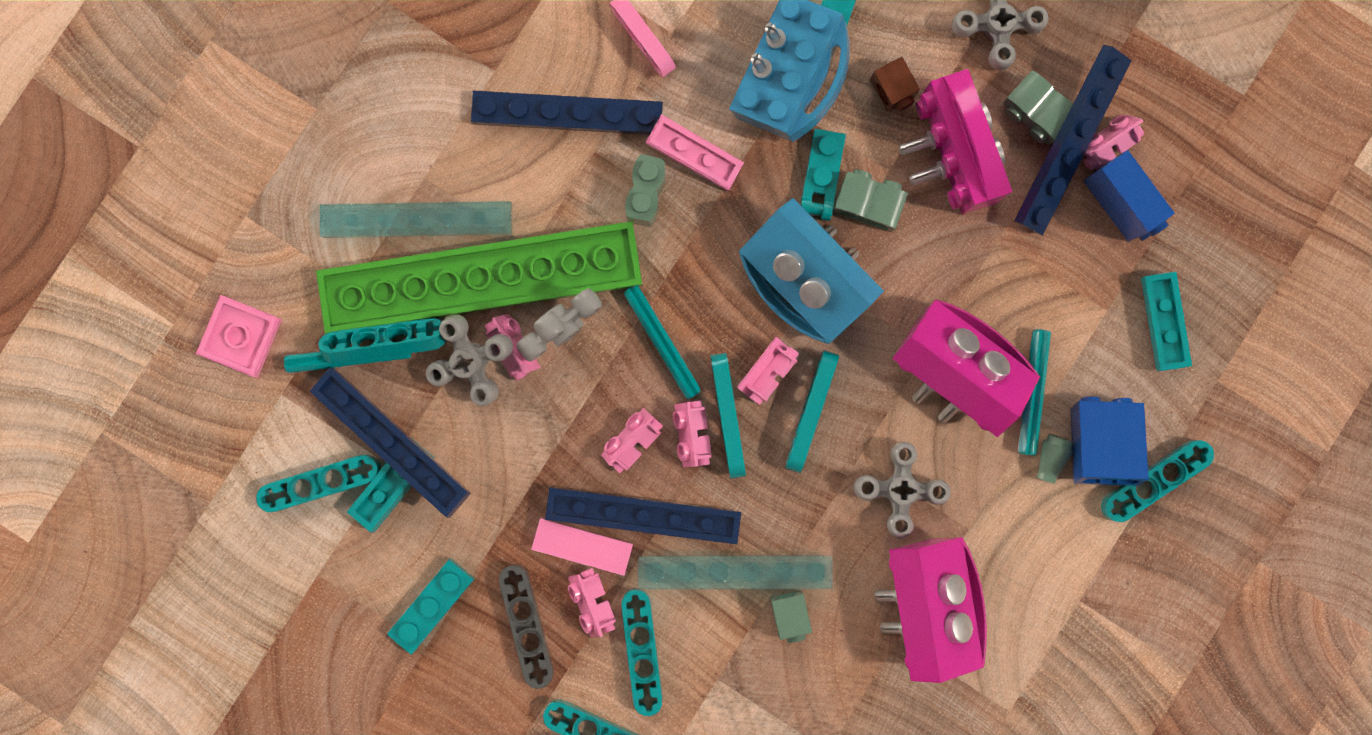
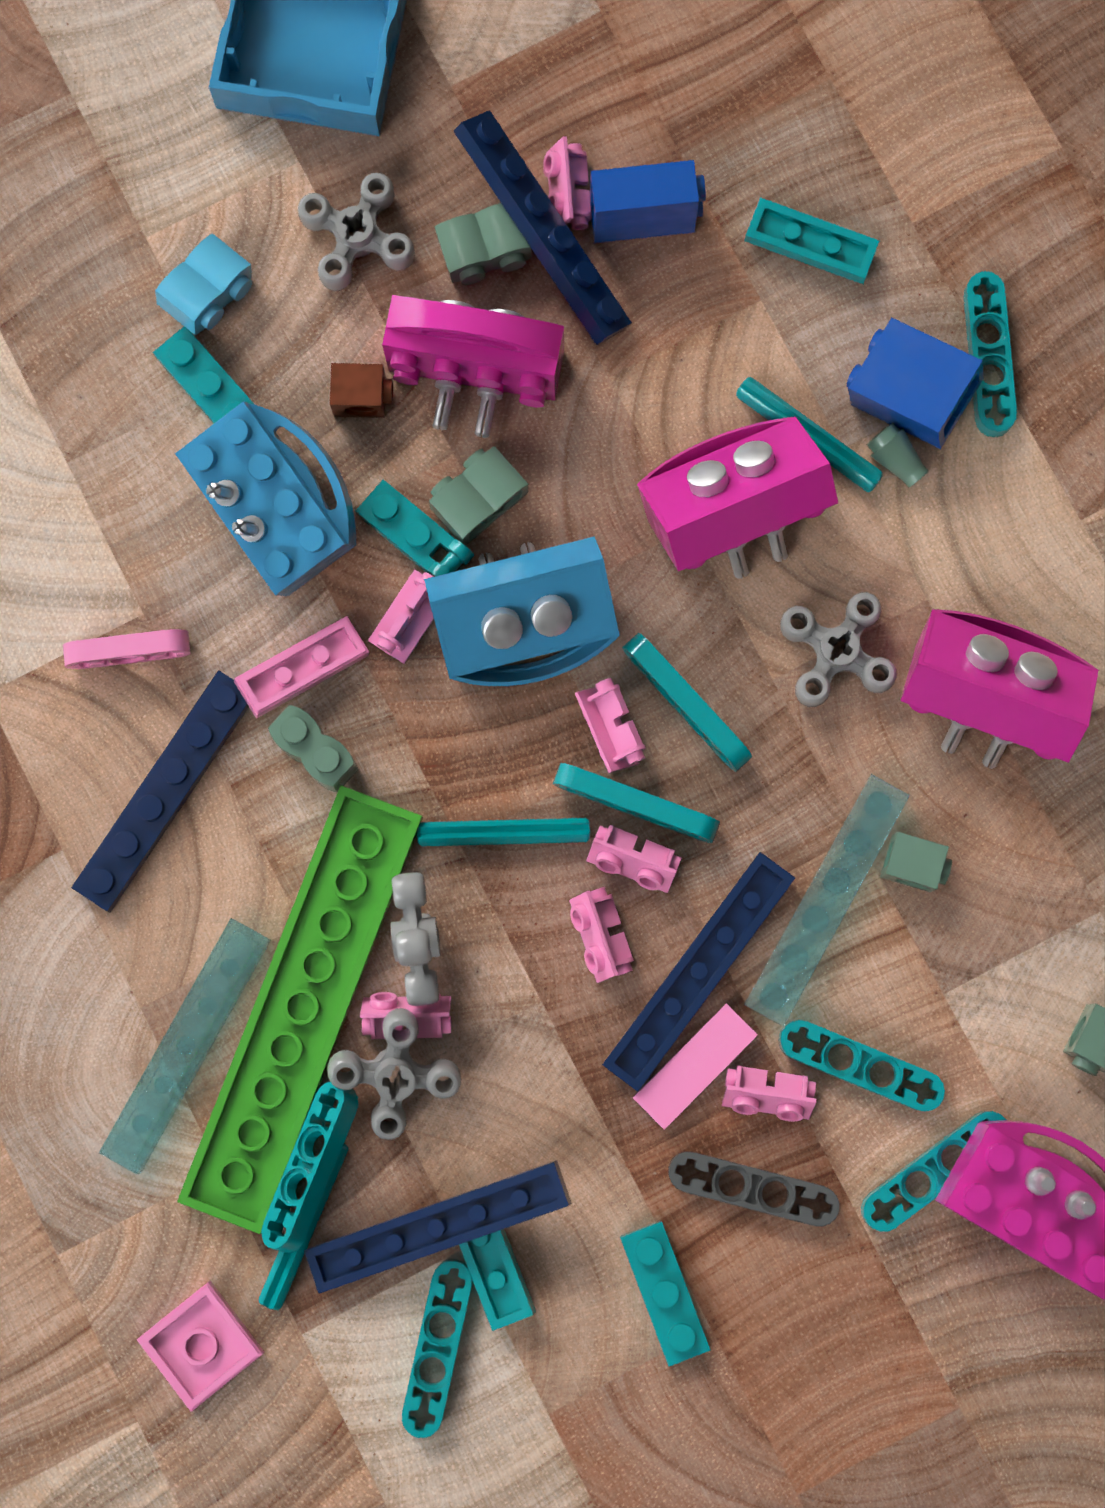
camera: 60 degrees left, 5 degrees down
(761, 200) = (405, 619): none -> bright pink hinge

